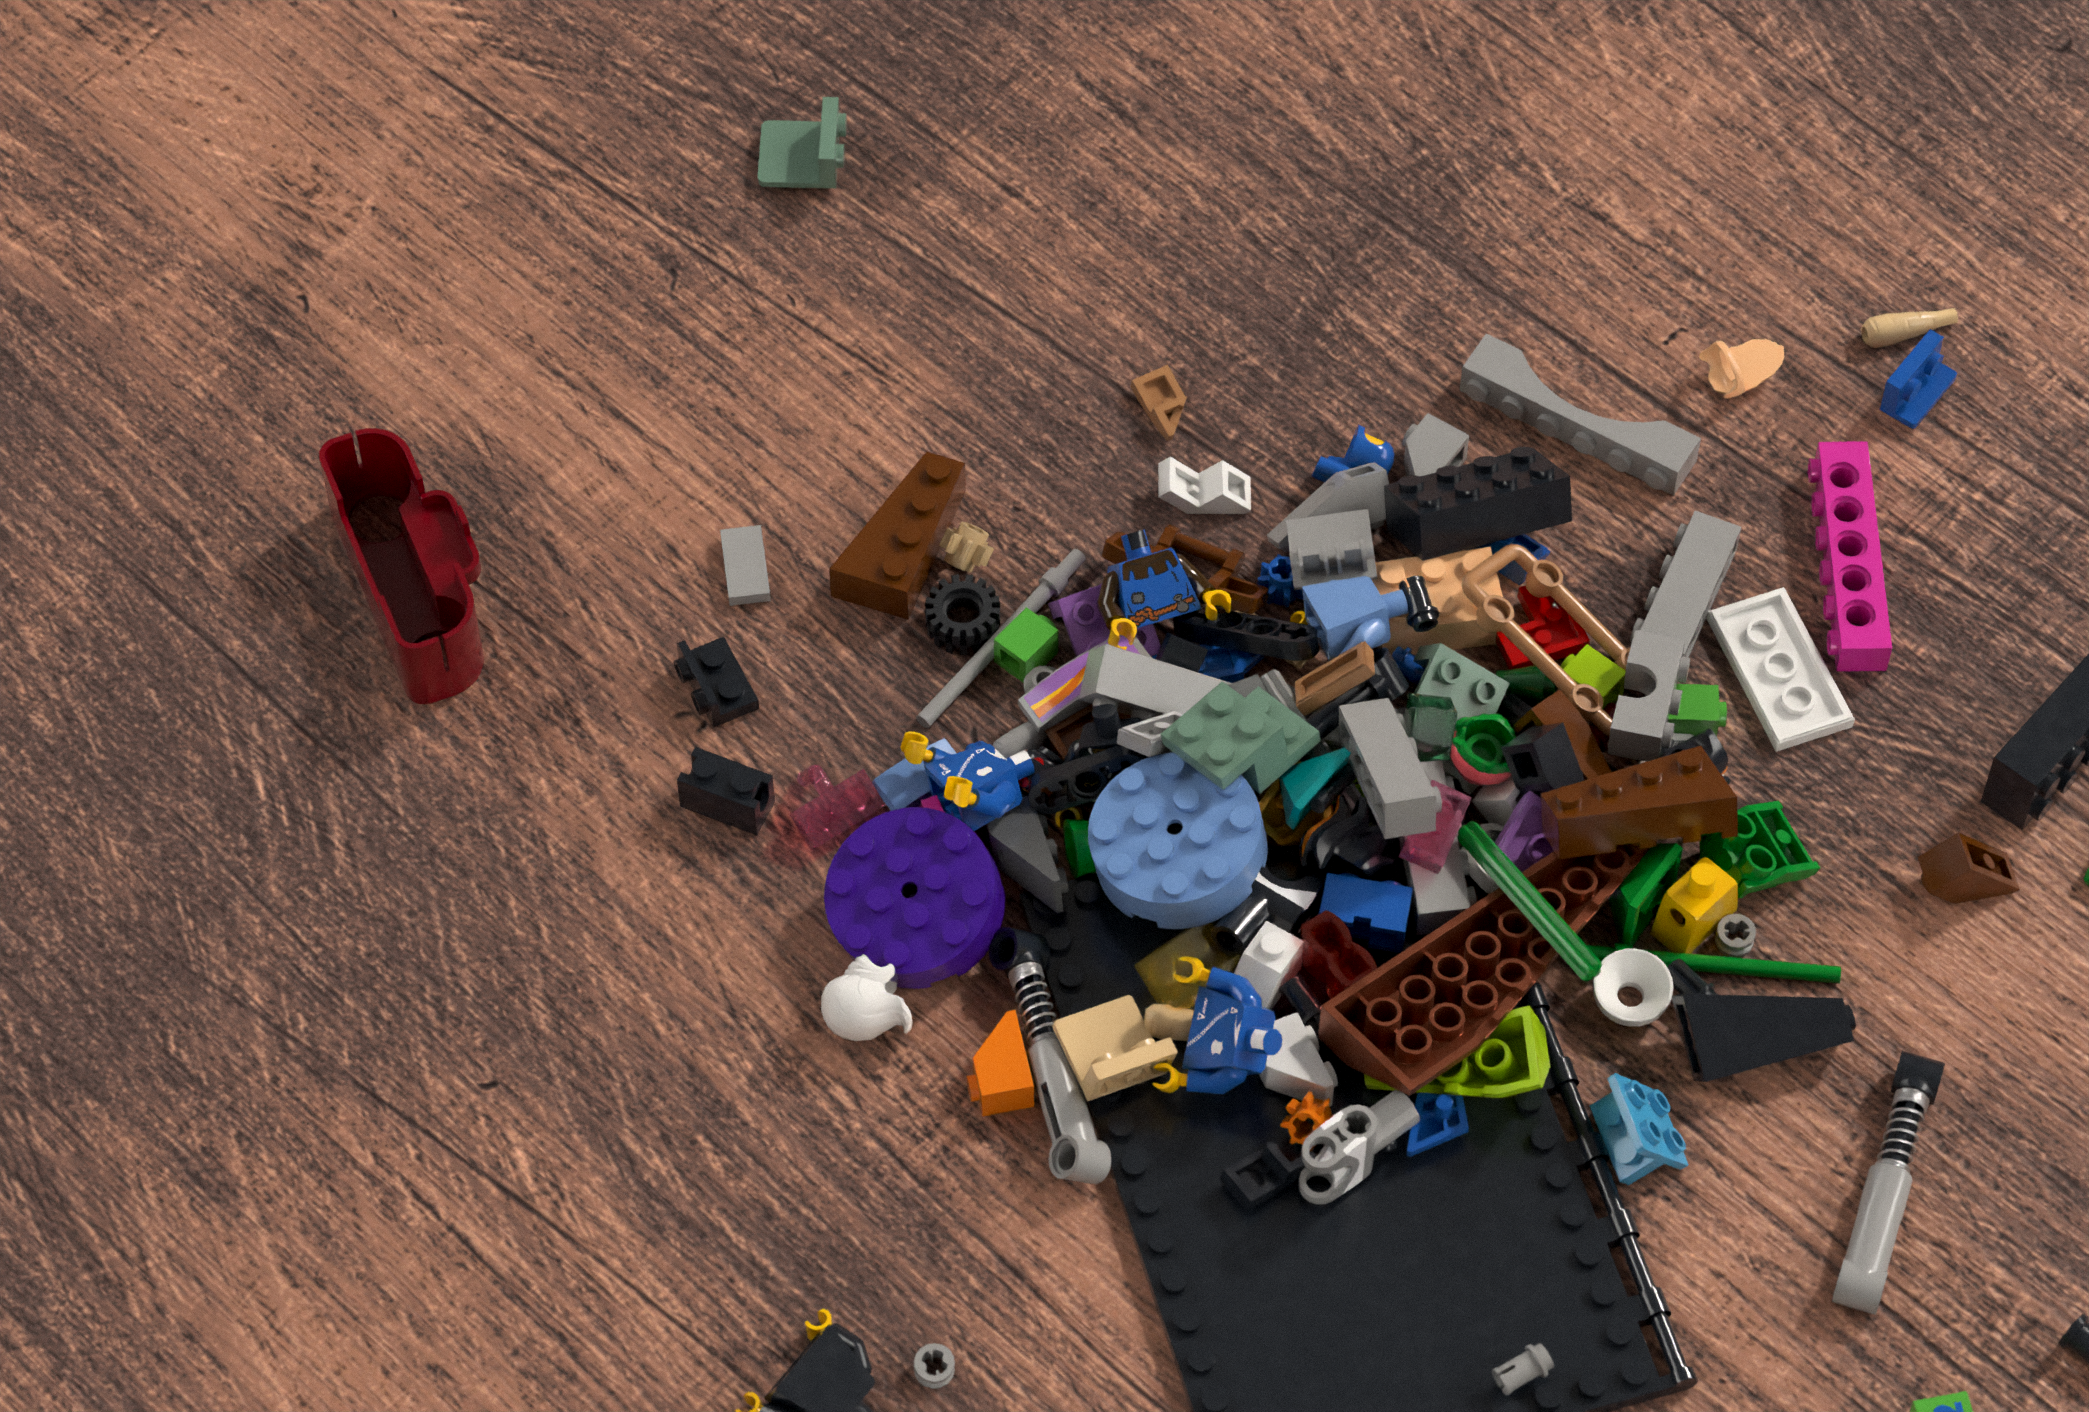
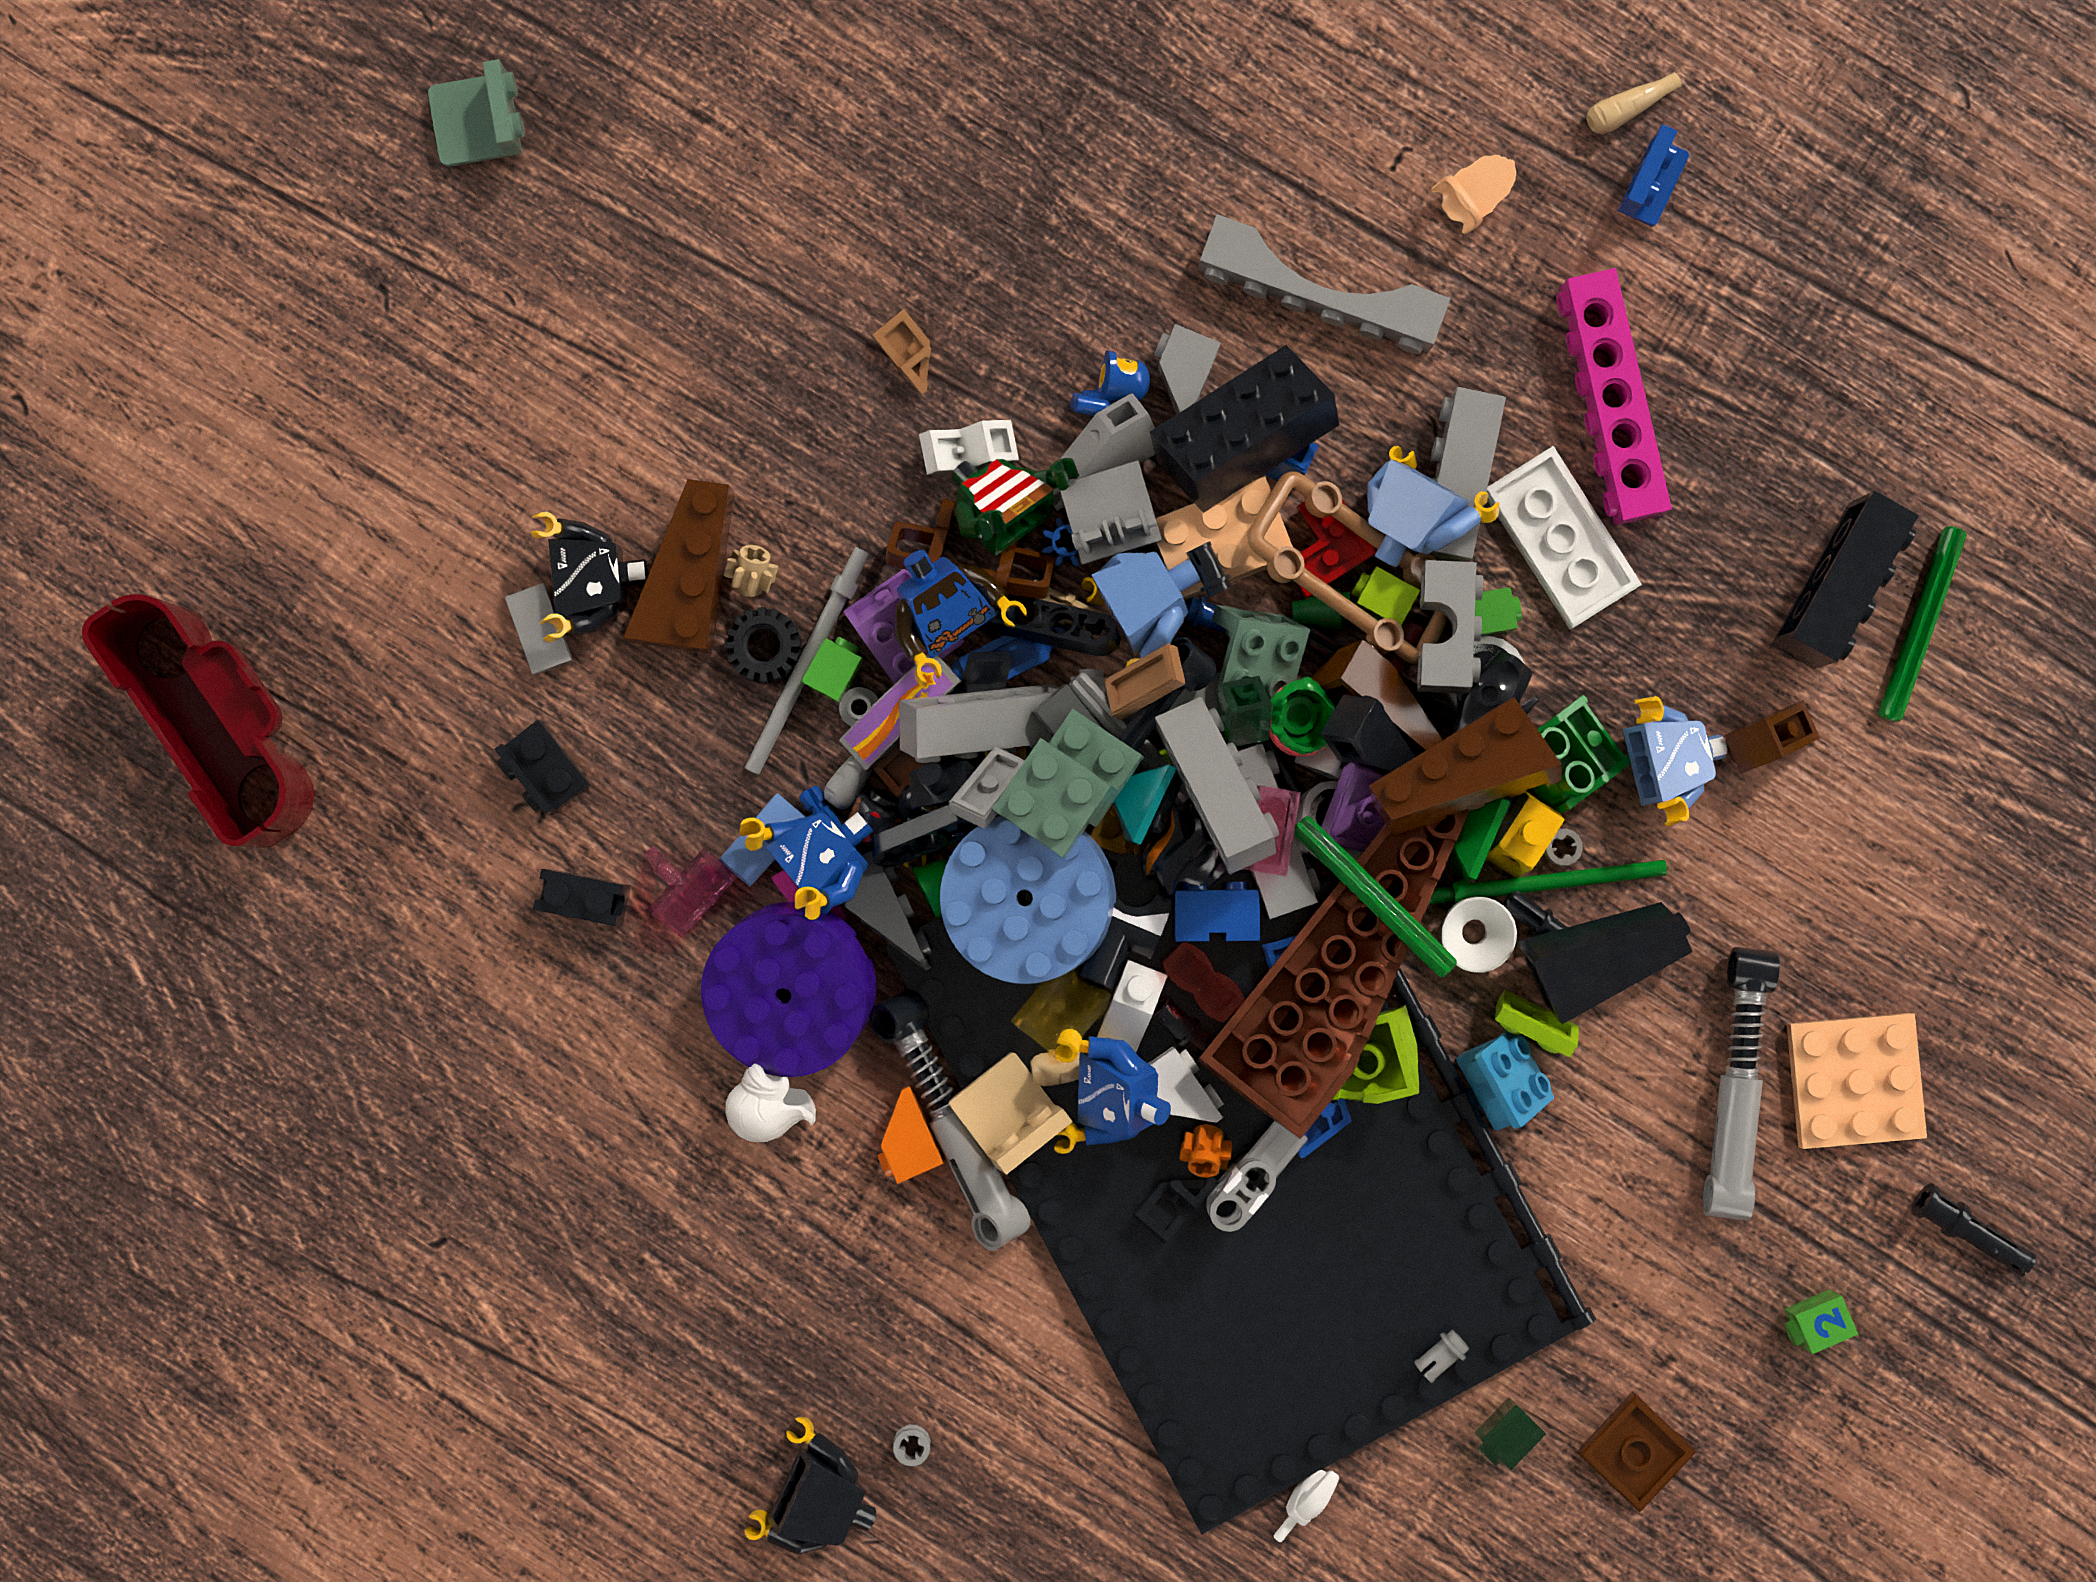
camera: 10 degrees left, 30 degrees up
(805, 520) = (586, 576): none -> black torso
(1232, 529) = (1006, 500): none -> torso
(1639, 596) = (1419, 510): none -> medium blue torso
(1694, 1098) = (1537, 1023): none -> lime plate
(1857, 861) = (1671, 758): none -> torso
(2015, 1209) = (1856, 1080): none -> light nougat plate

